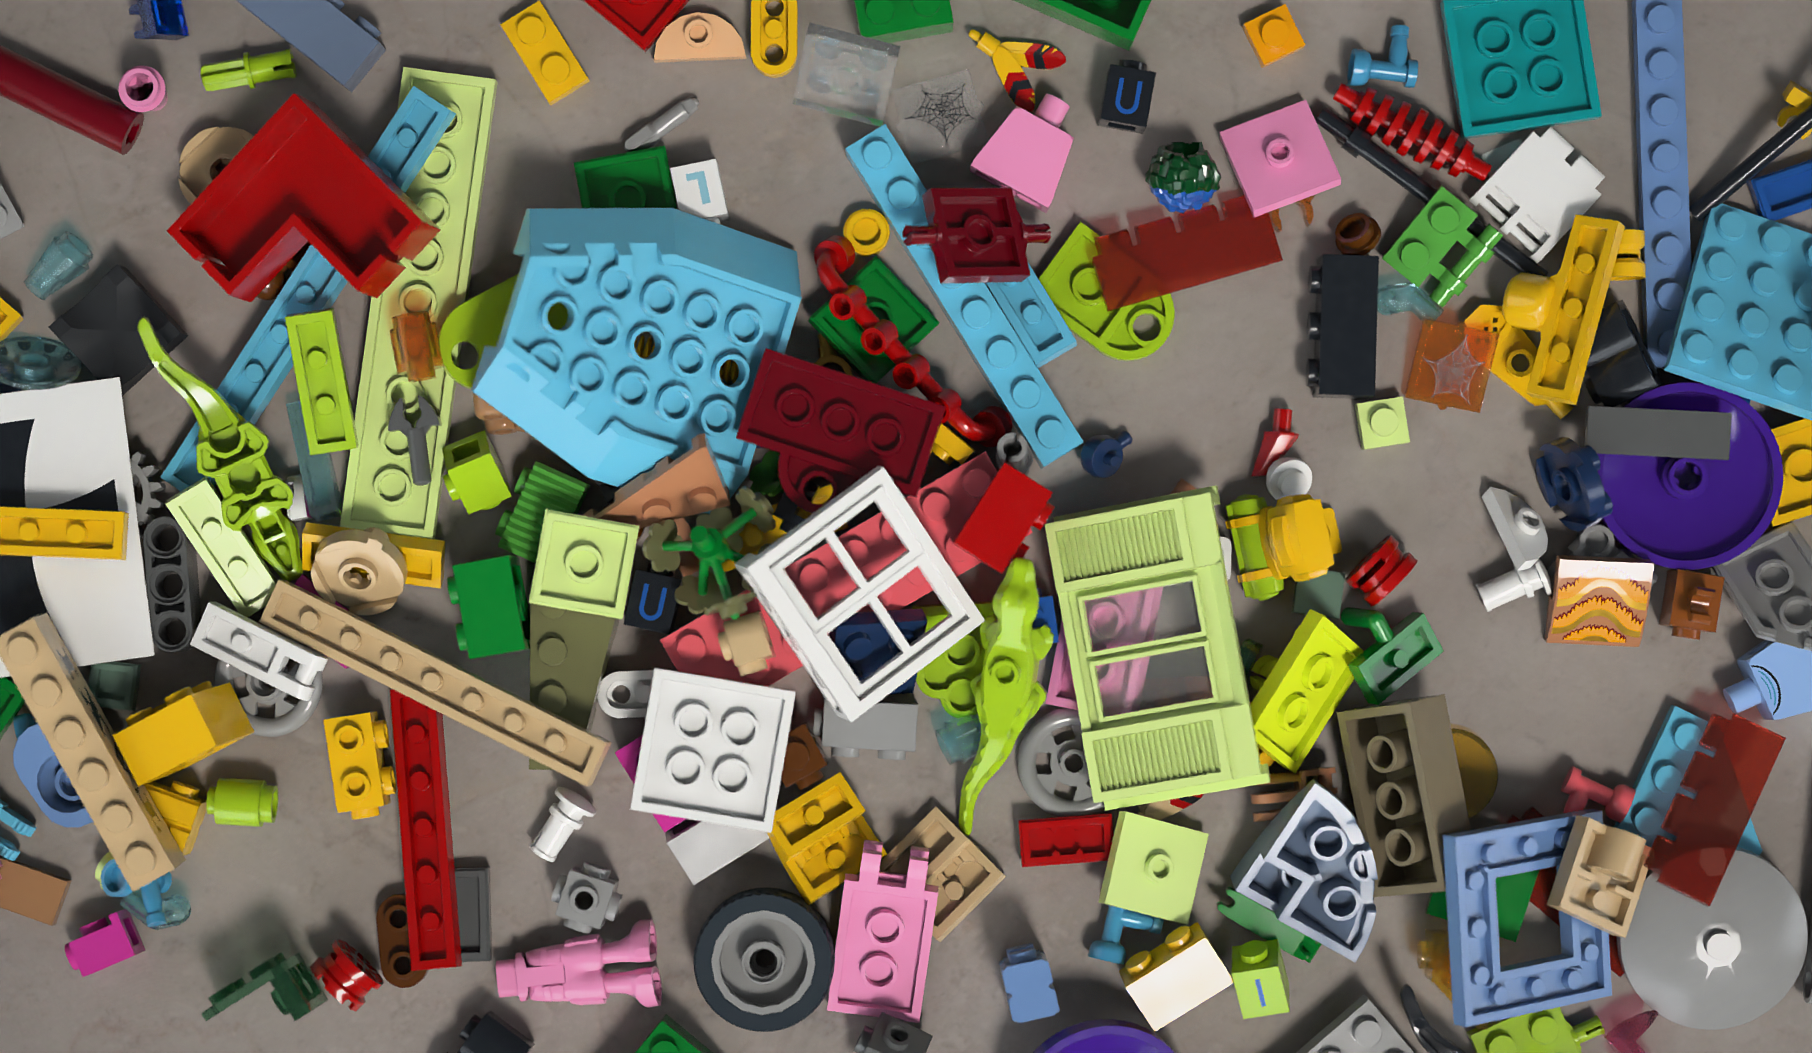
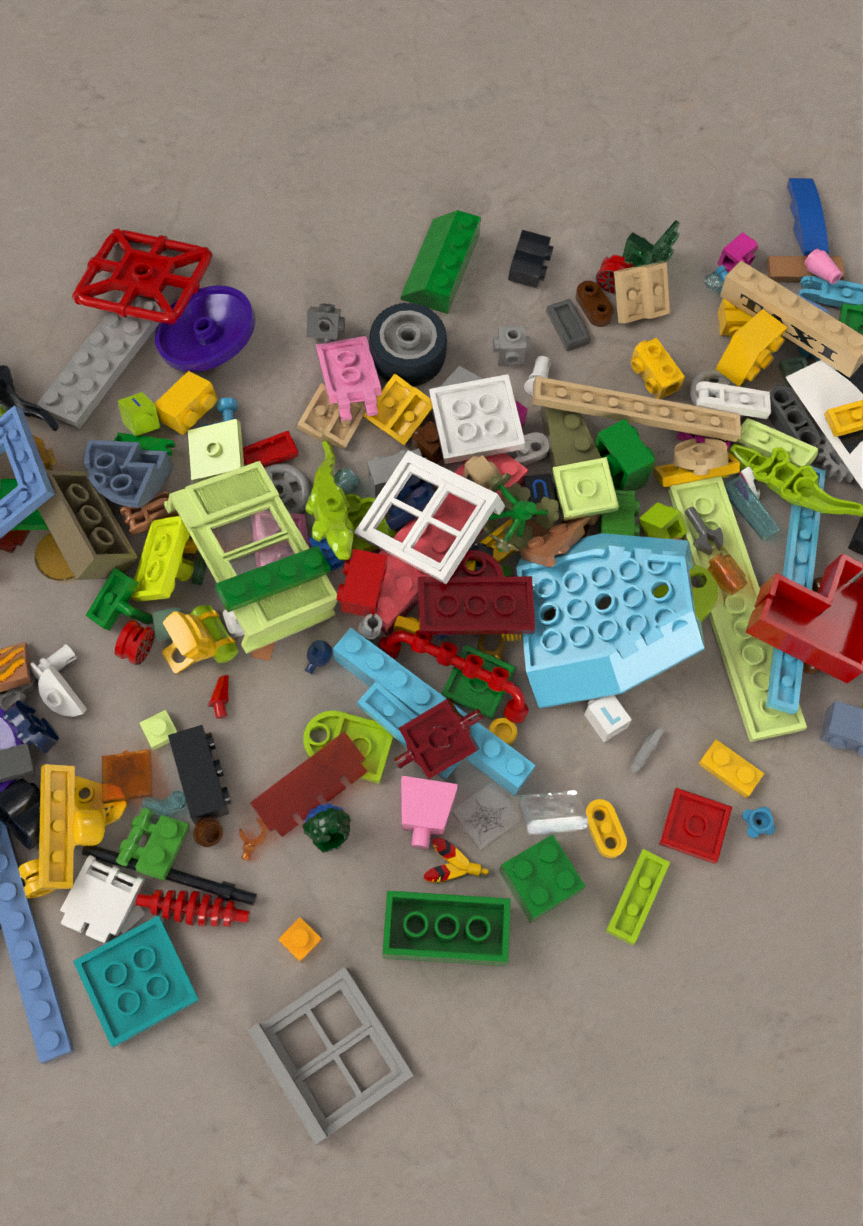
camera: 160 degrees right, 20 degrees down
(242, 802) = (704, 335): lime brick -> none
(317, 918) = (642, 292): none -> tan slope
(321, 381) = (768, 538): lime plate -> none
(425, 834) = (602, 340): red plate -> none
(577, 971) = (495, 312): bright pink piece -> none
(627, 180) = (651, 705): green plate -> none
(699, 39) = (646, 809): light nougat plate -> none
(1028, 983) = (264, 370): medium blue brick -> none
(1127, 97) = (378, 864): black brick -> none
(1141, 576) = (272, 578): none -> green plate
(1280, 158) = (271, 861): bright pink plate -> none
(1288, 477) = (206, 677): white plate -> none
(1396, 69) = (214, 946): dark azure piece -> none

